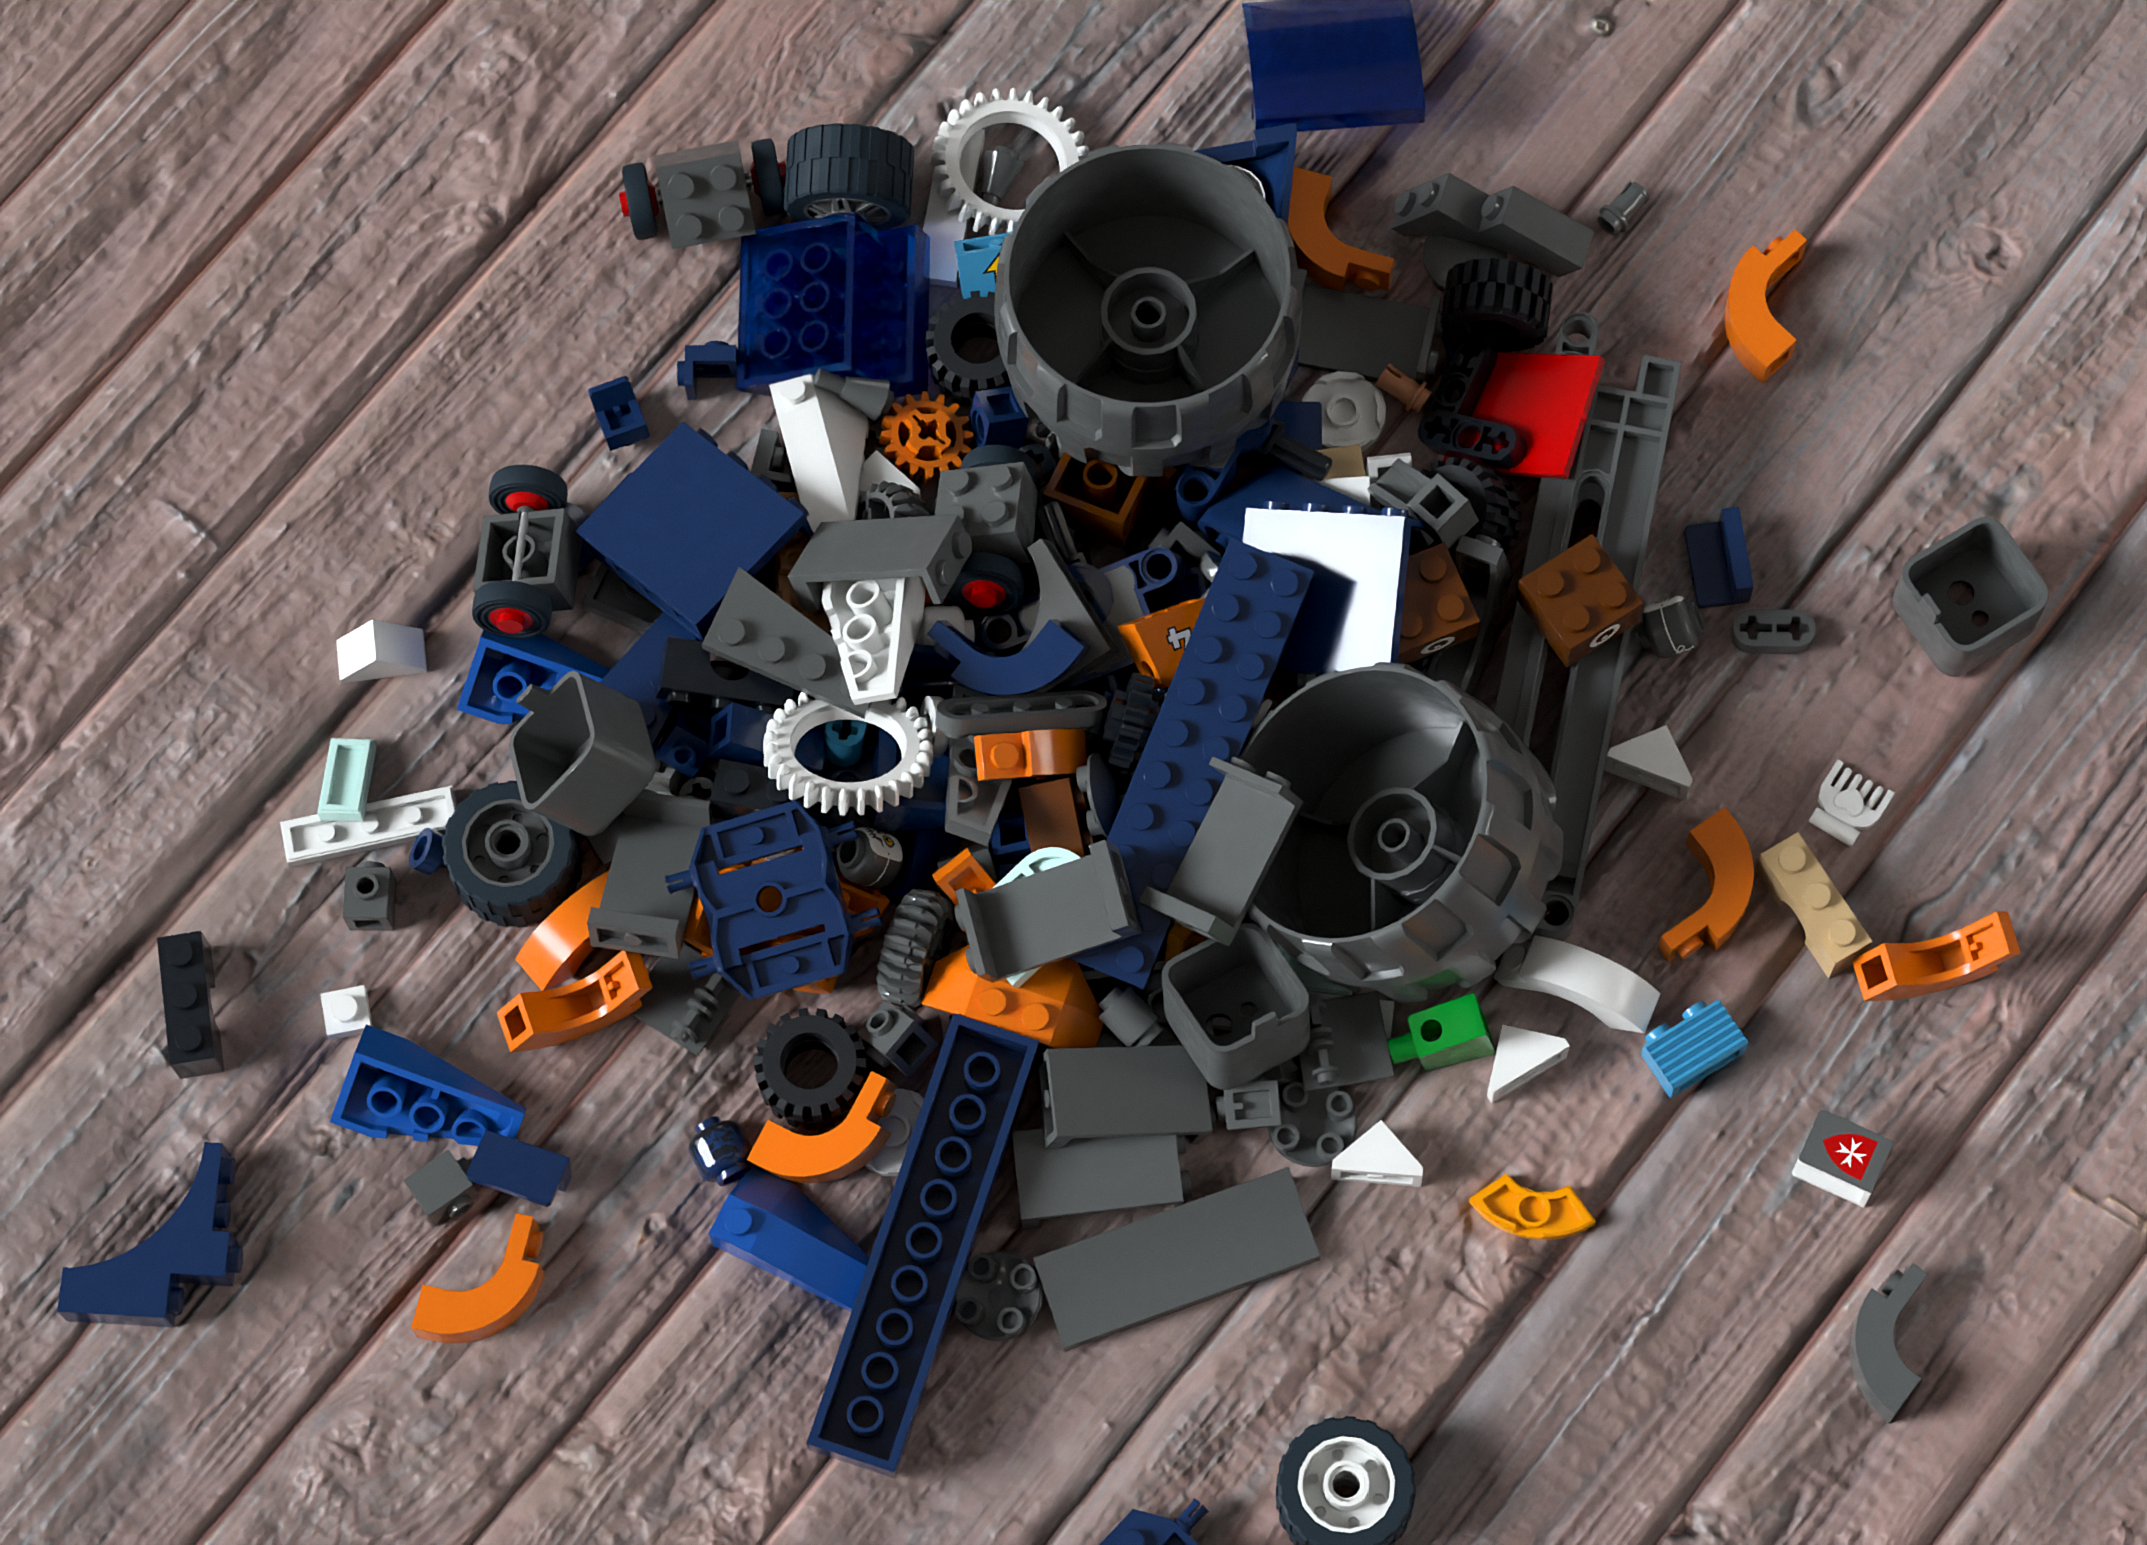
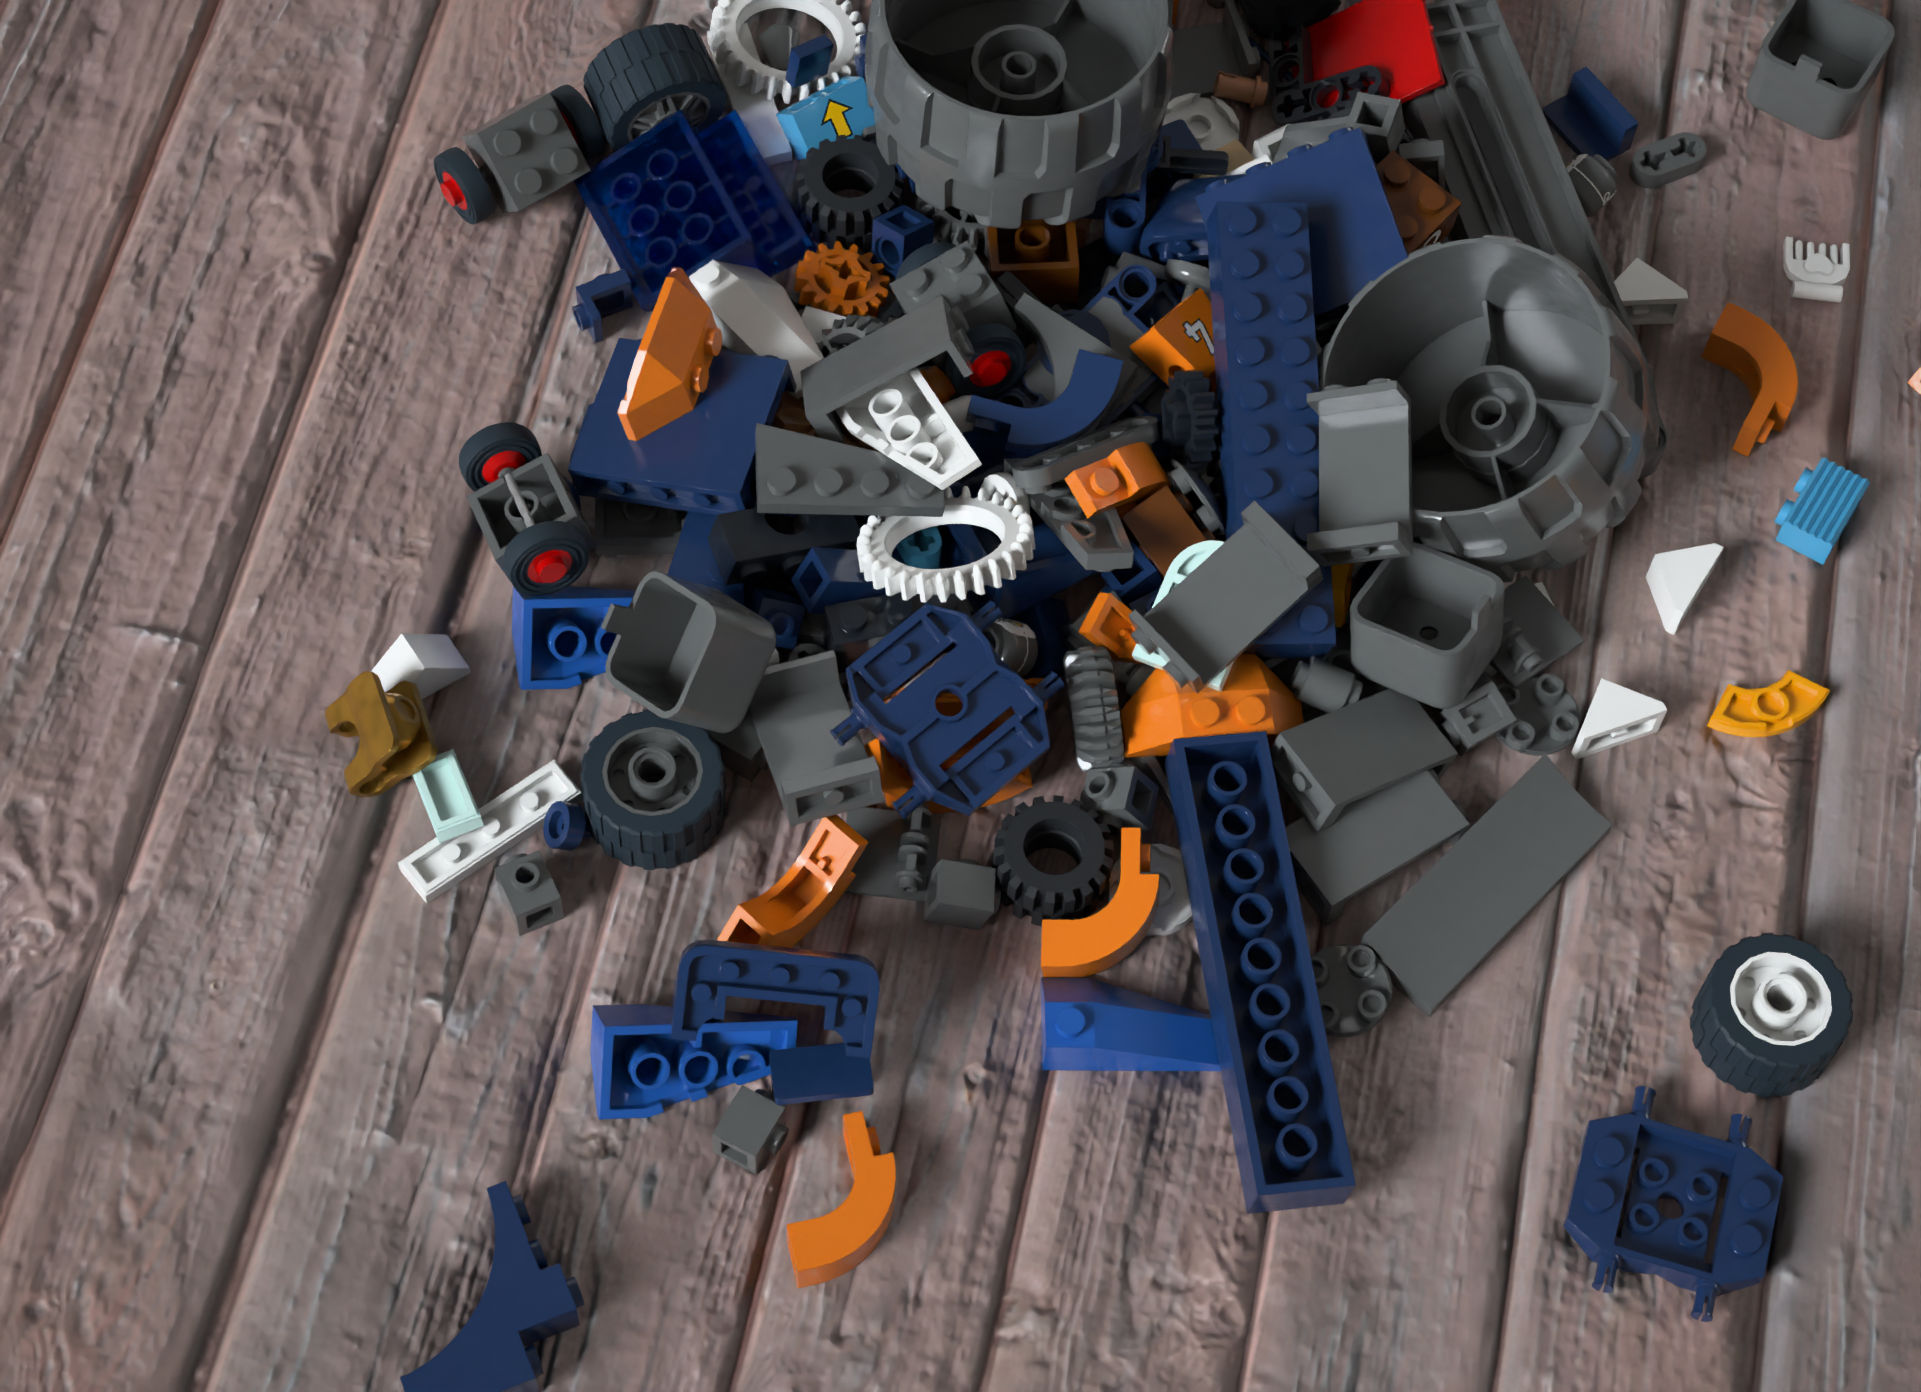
camera: 35 degrees left, 10 degrees down
(188, 1011) = (400, 1067): black arch -> none
(323, 703) = (391, 731): none -> pearl gold piece
(346, 1012) = (559, 1011): white plate -> none
(557, 1106) = (717, 969): none -> dark blue windscreen
(563, 938) = (750, 838): orange arch -> none
(618, 413) = (538, 374): dark blue bracket -> none
(703, 465) = (670, 359): none -> orange wedge
(720, 1151) = (1005, 975): dark blue head -> none
(721, 1062) = (961, 894): none -> dark grey brick
(865, 394) = (772, 261): dark grey cone -> none
(1000, 206) = (809, 61): none -> dark blue tile
(1462, 1033) = (1612, 583): green torso -> none
(1579, 600) = (1522, 167): reddish brown brick -> none
(1582, 977) = (1701, 484): white arch -> none
(1828, 922) = (1874, 361): tan arch -> none

